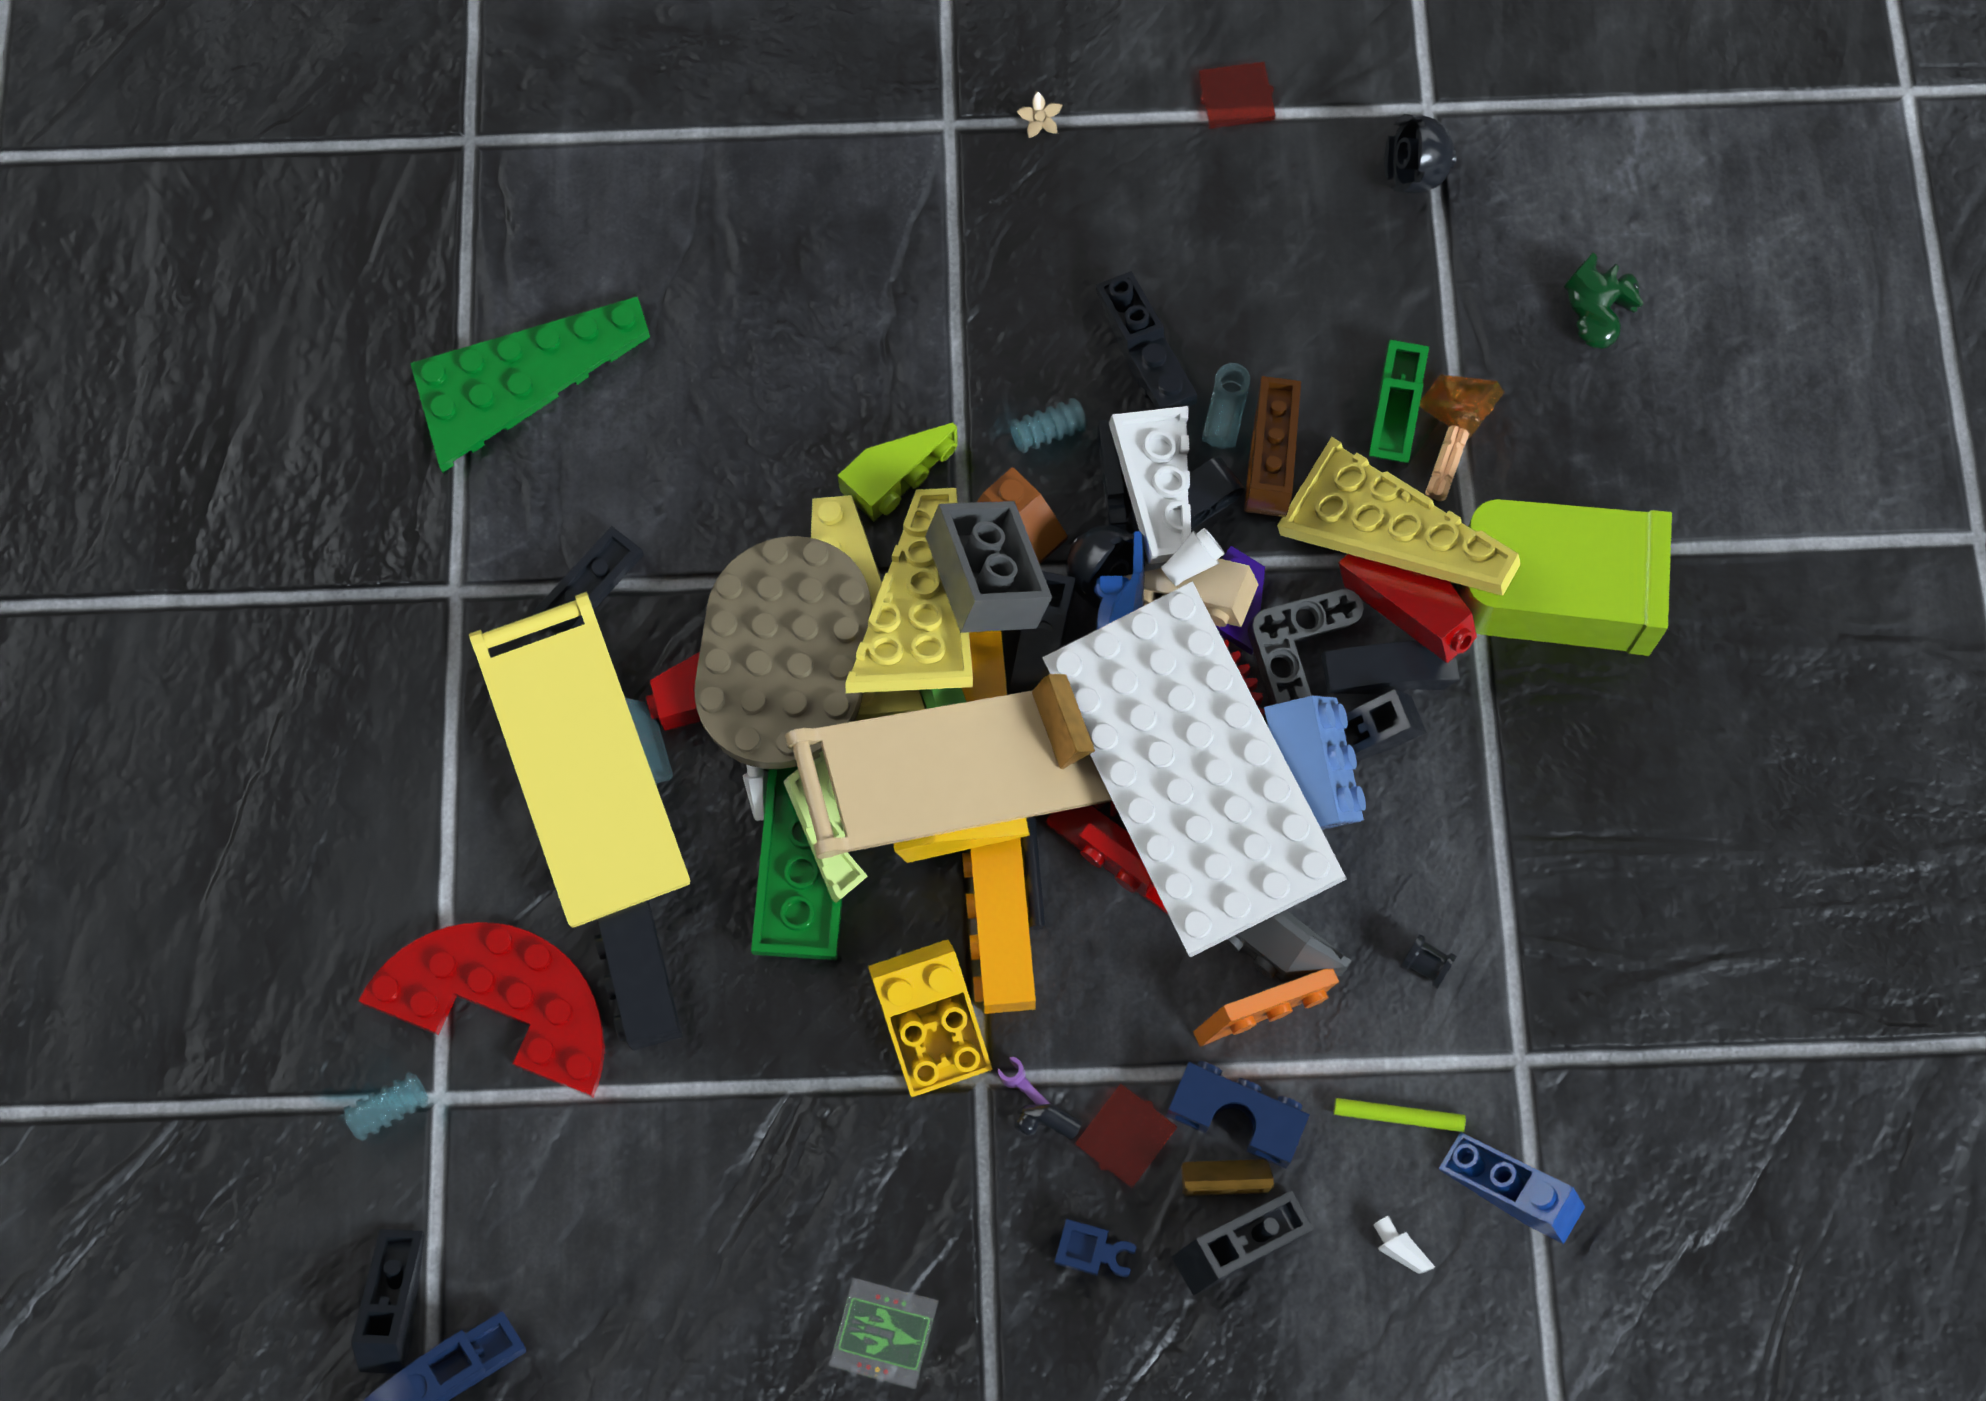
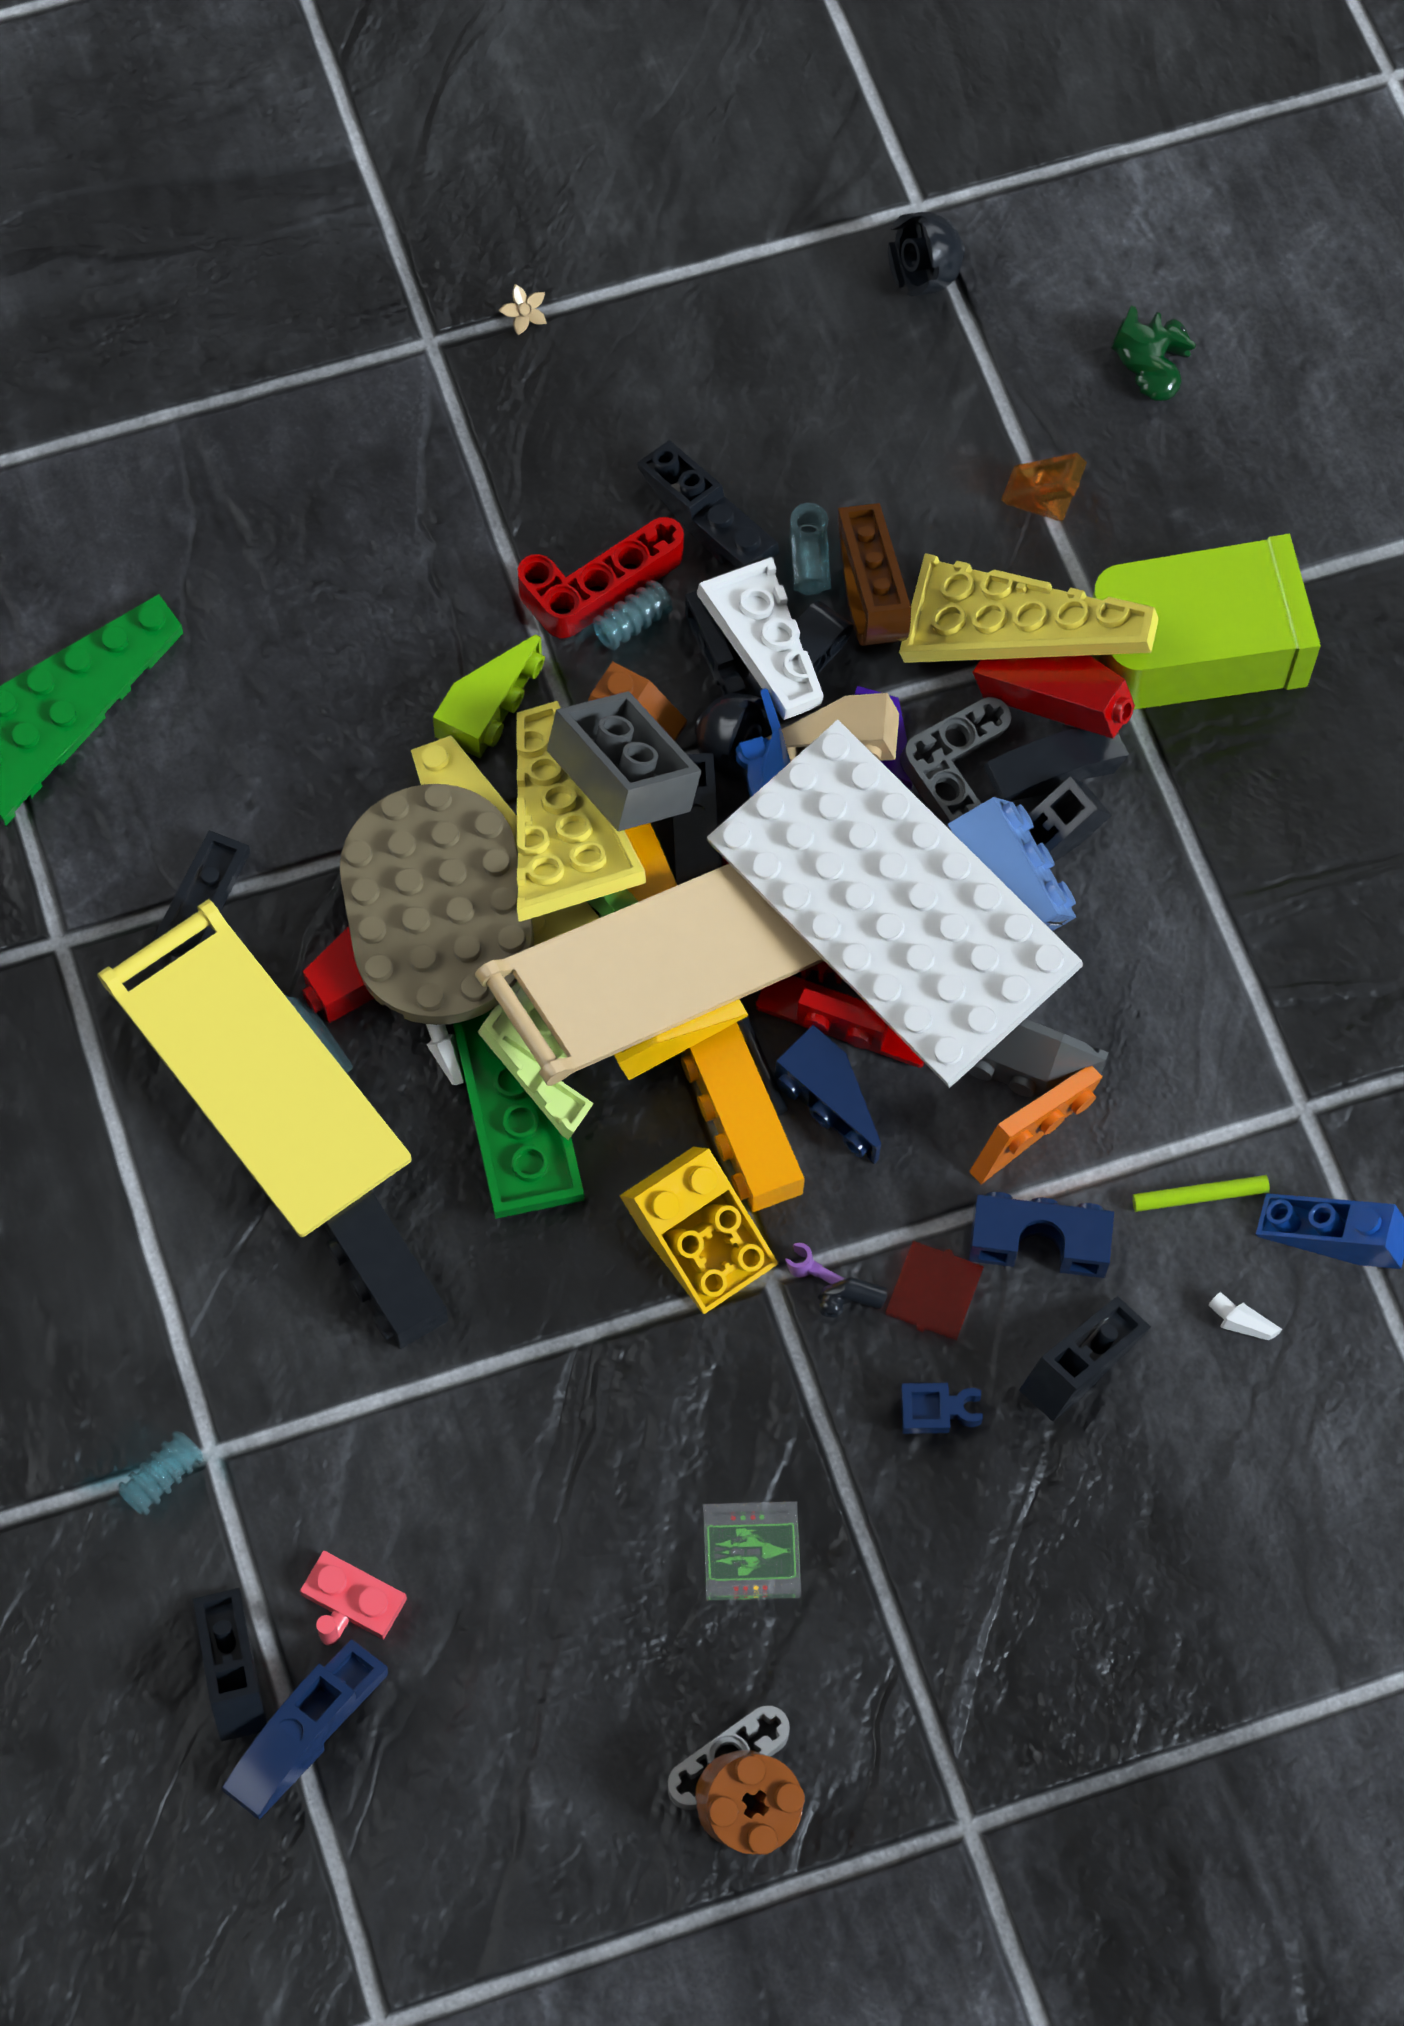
camera: 20 degrees left, 5 degrees down
(507, 974) = (246, 1309): red plate -> none
(517, 1271) = (351, 1598): none -> coral plate
(1062, 719) = (747, 891): pearl gold slope -> none
(1076, 365) = (654, 548): none -> red beam
(1085, 910) = (825, 1082): none -> dark blue slope
(1193, 557) = (828, 699): white cone -> none
(1226, 1177) = (1049, 1302): pearl gold slope -> none
(1237, 95) = (719, 240): clear red piece -> none
(1398, 401) = (981, 500): green slope -> none
(1428, 961) = (1183, 1036): black bush -> none
(1447, 463) = (1049, 547): light nougat axle -> none

